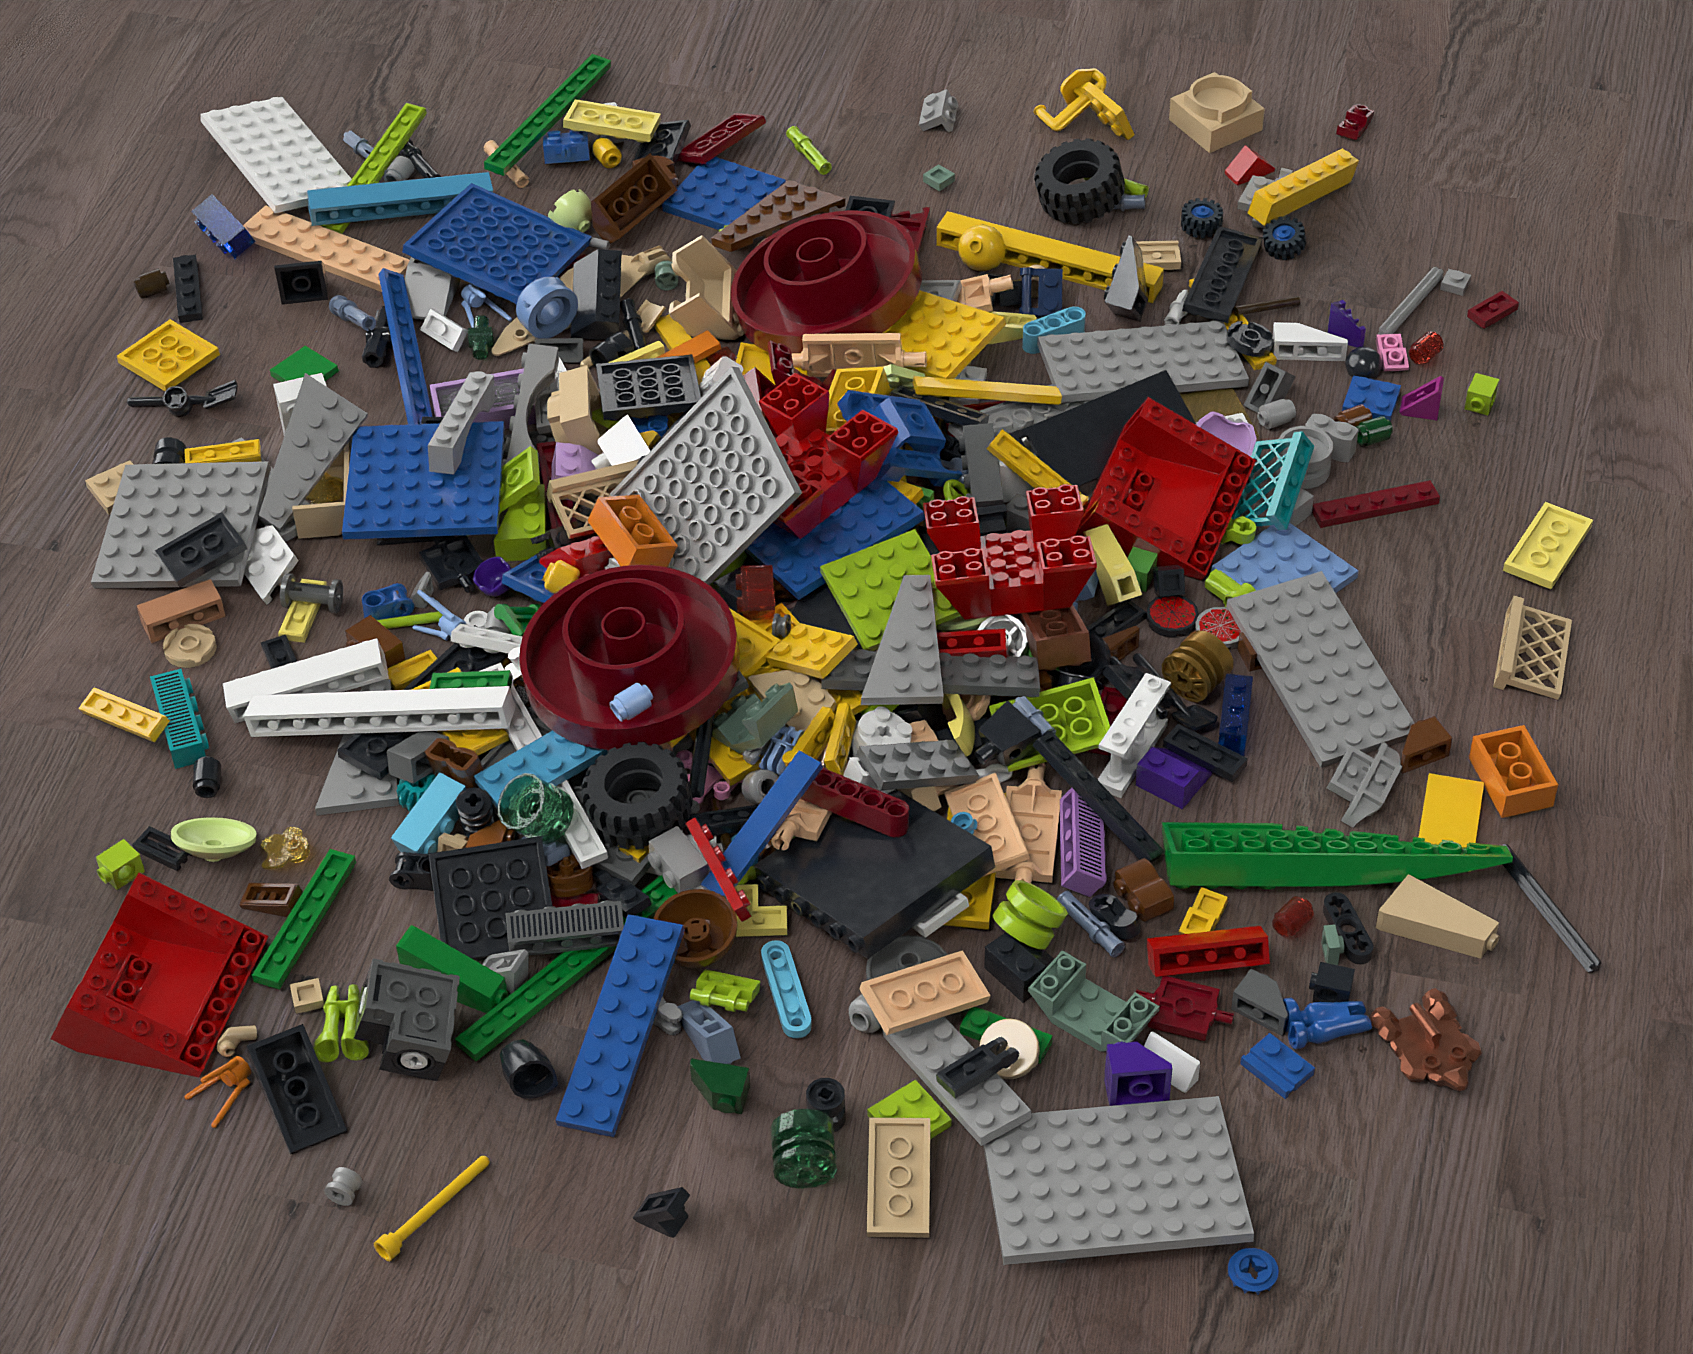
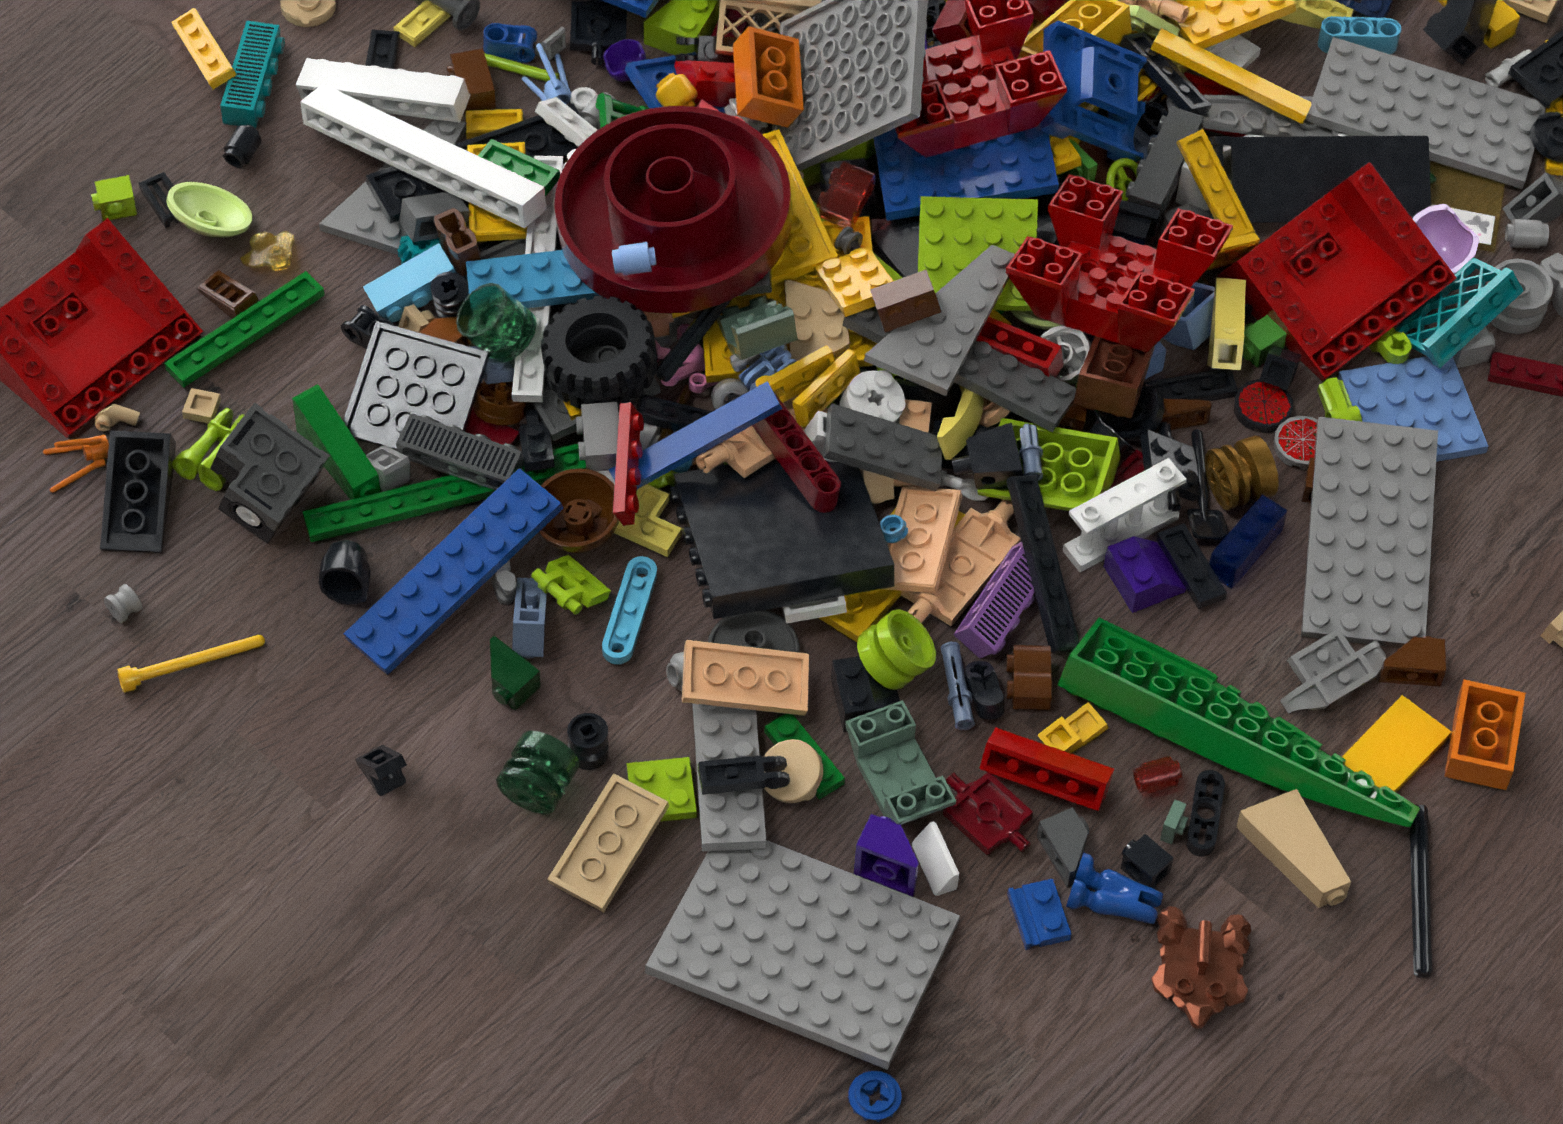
camera: 25 degrees right, 10 degrees up
(868, 642) = (905, 300): none -> reddish brown brick

